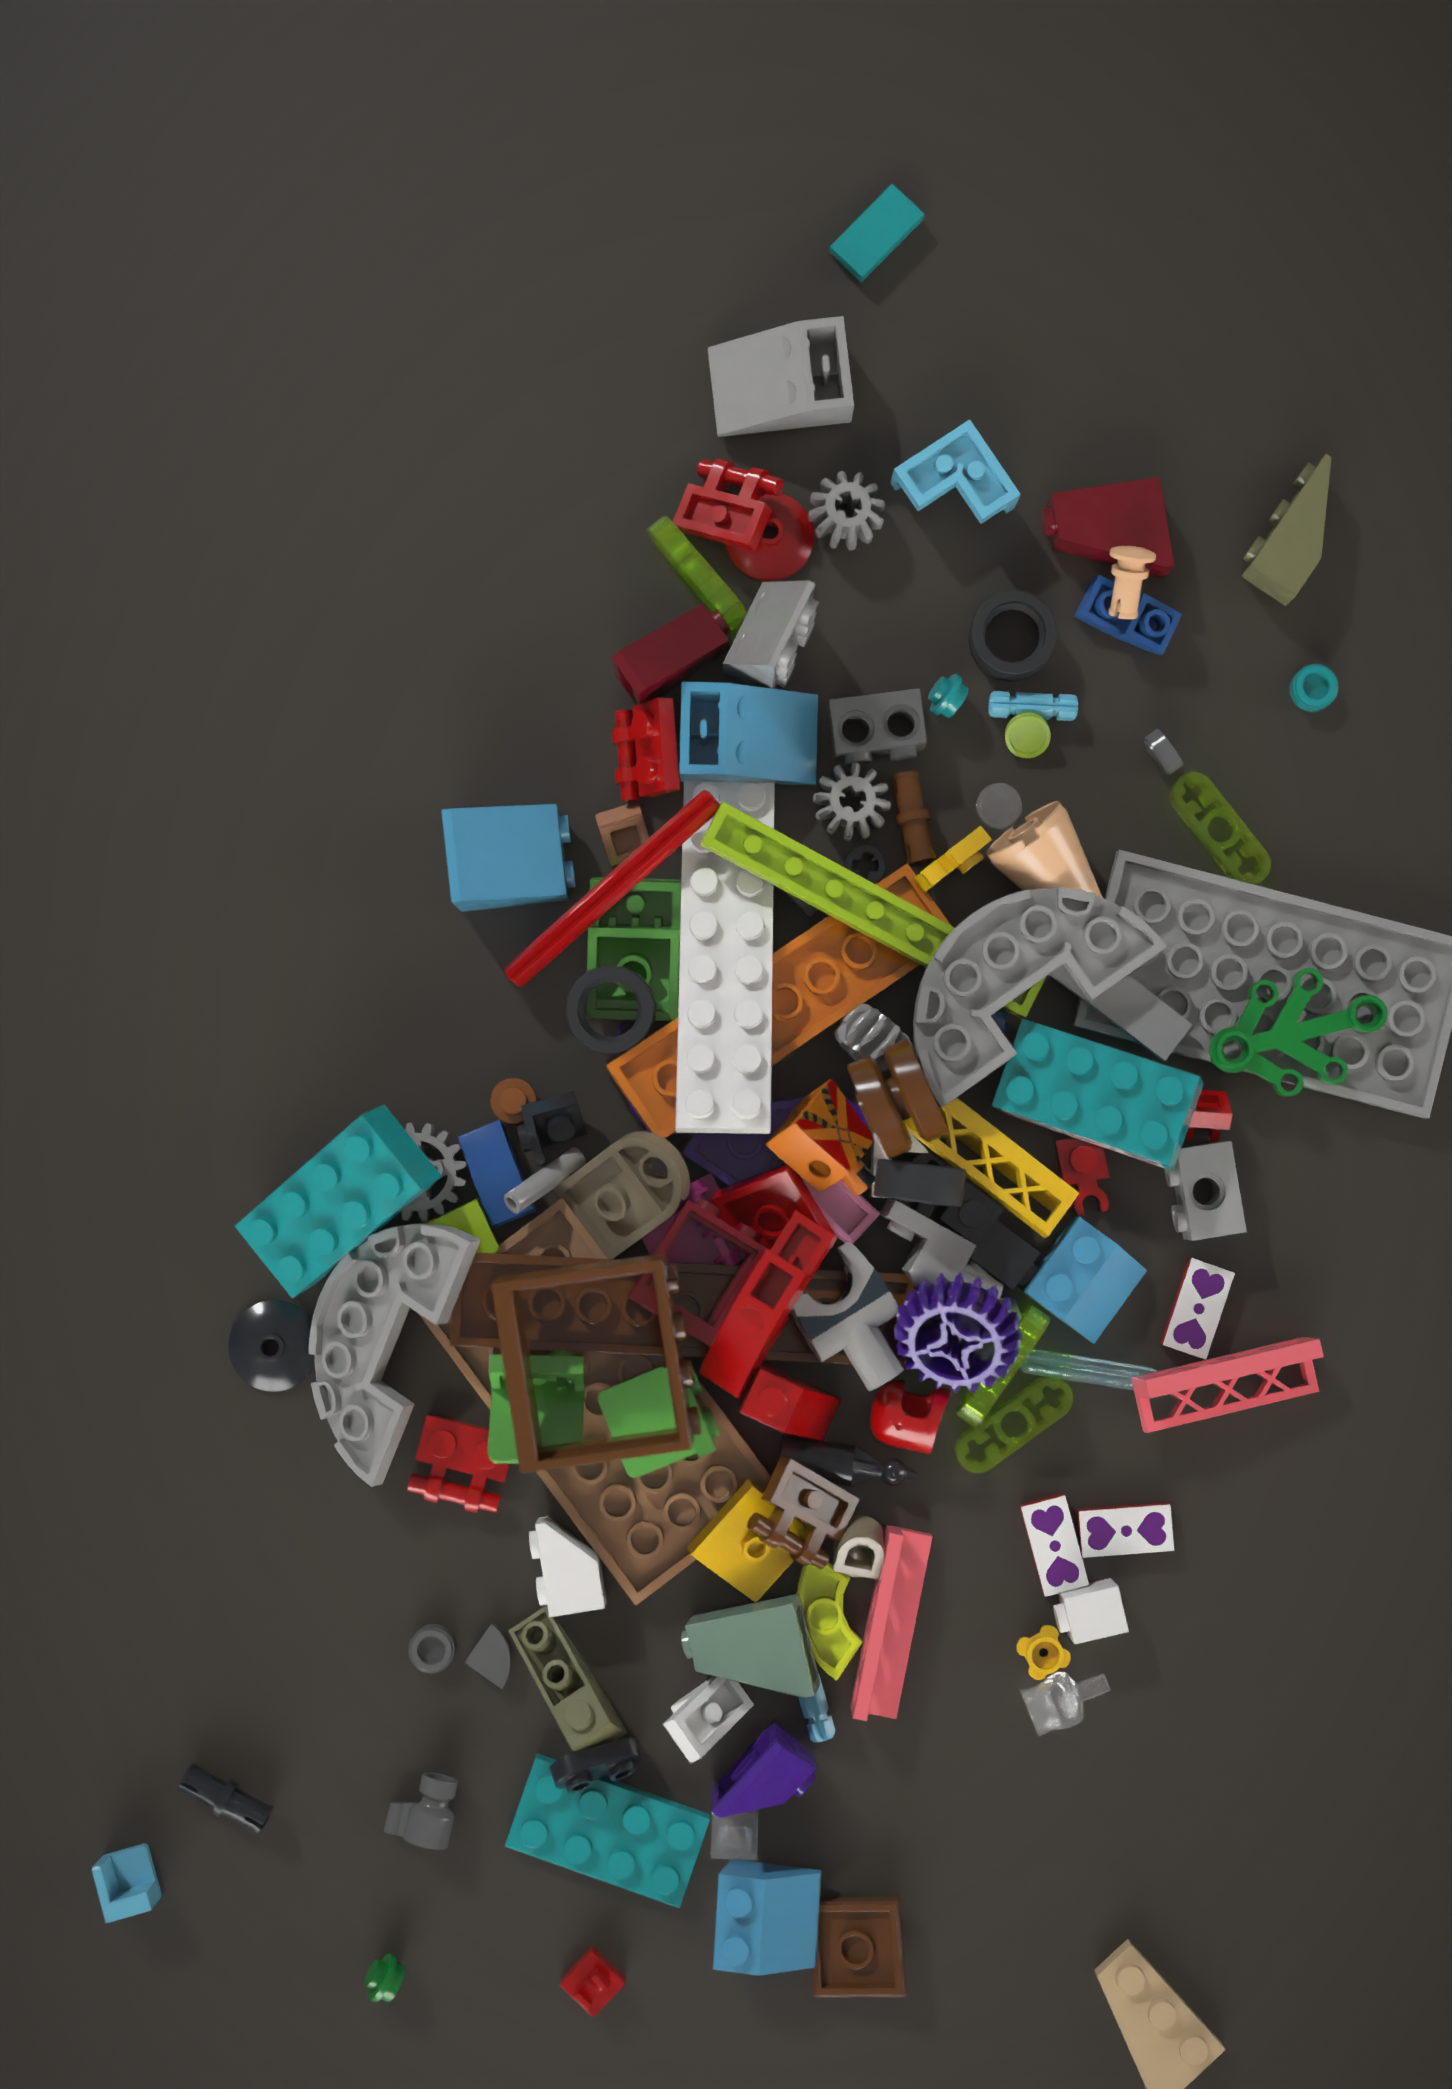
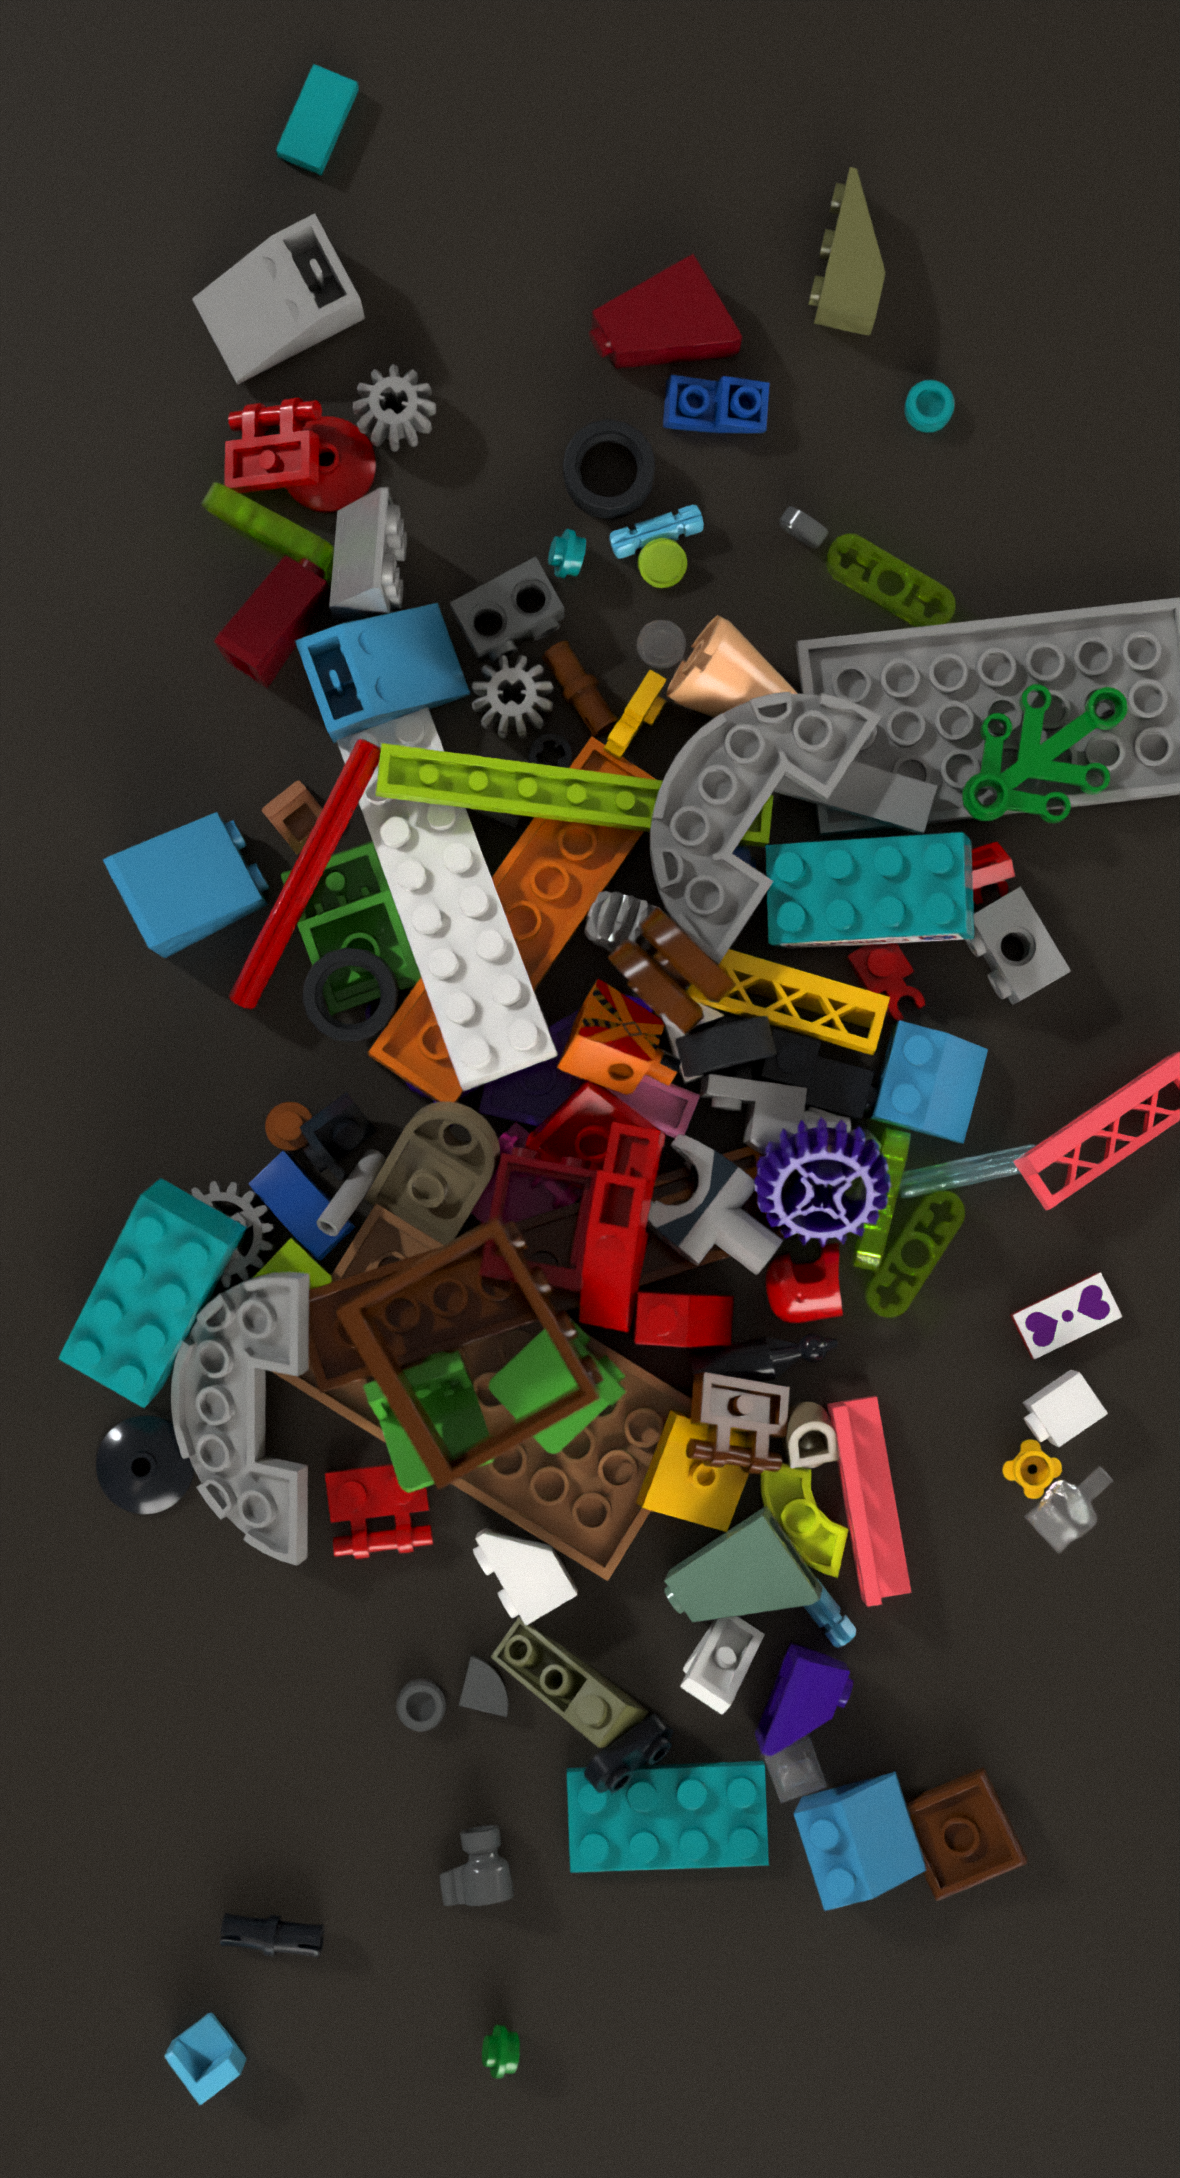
camera: 20 degrees left, 0 degrees up
(592, 1981) = (711, 1973): red tile -> none
(653, 735) = (286, 707): red plate -> none
(962, 462) = (488, 315): medium azure panel -> none
(1054, 1545) = (1001, 1358): white tile -> none
(1128, 574) = (702, 367): light nougat pin -> none
(1197, 1308) = (1052, 1067): white tile -> none

